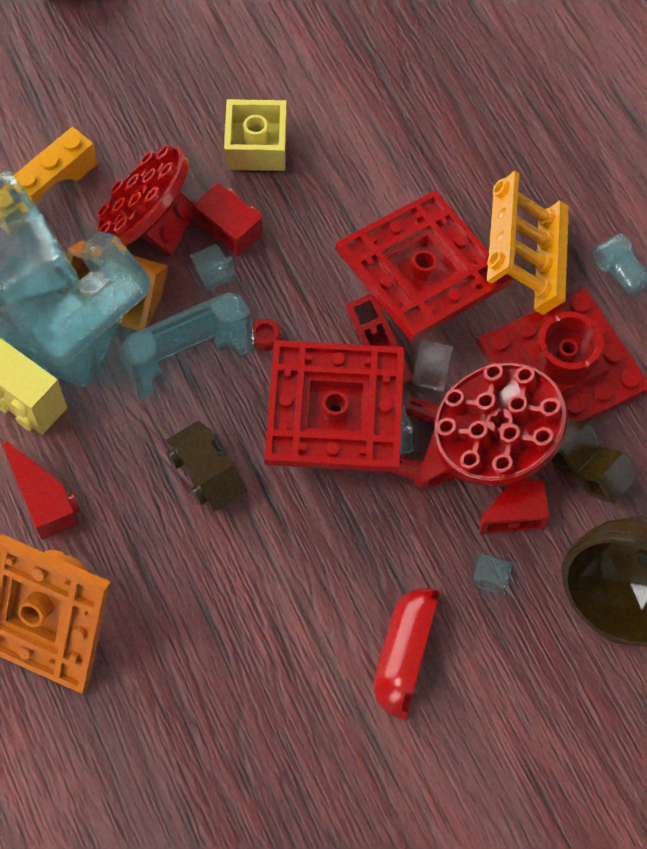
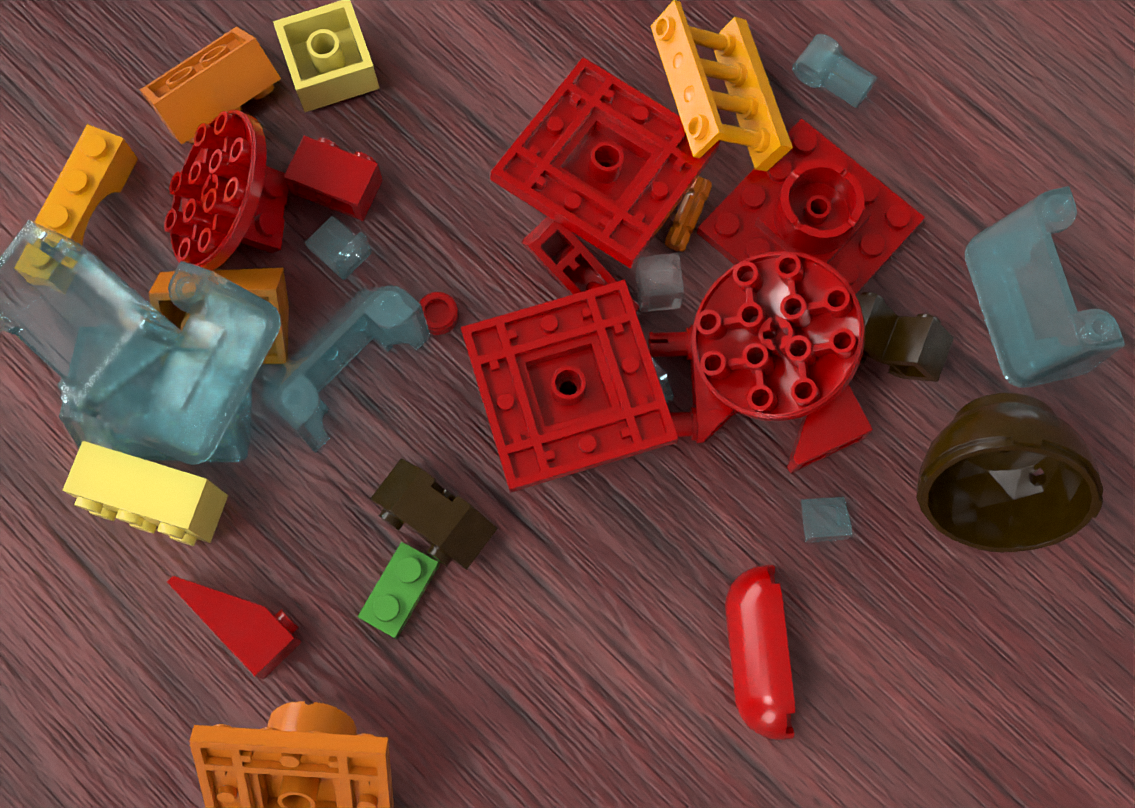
camera: 20 degrees left, 10 degrees up
(160, 512) = (398, 590): none -> bright green plate
(176, 125) = (211, 82): none -> orange slope
(474, 327) = (688, 214): none -> orange axle

